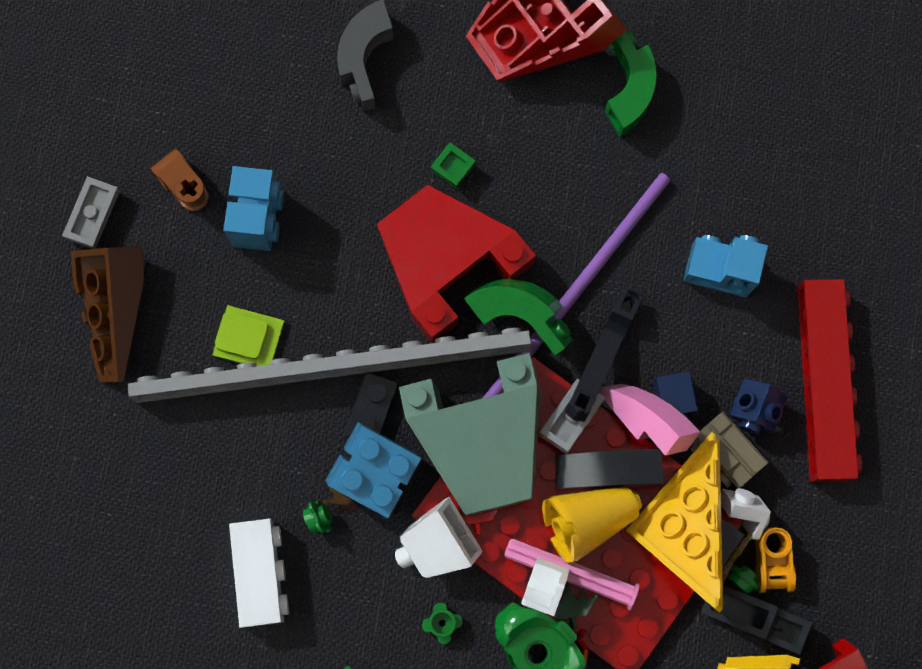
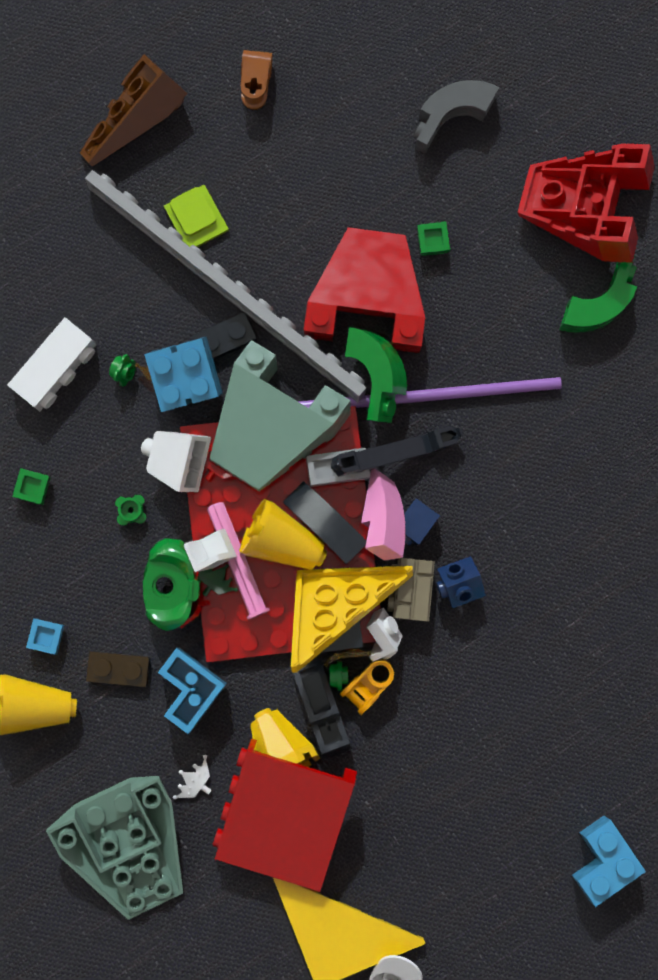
camera: 45 degrees right, 5 degrees up
(91, 213) = (180, 42): light grey plate -> none
(253, 219) = (274, 147): dark azure piece -> none
(726, 267) = (534, 474): dark azure brick -> none
(828, 381) = (522, 612): red brick -> none

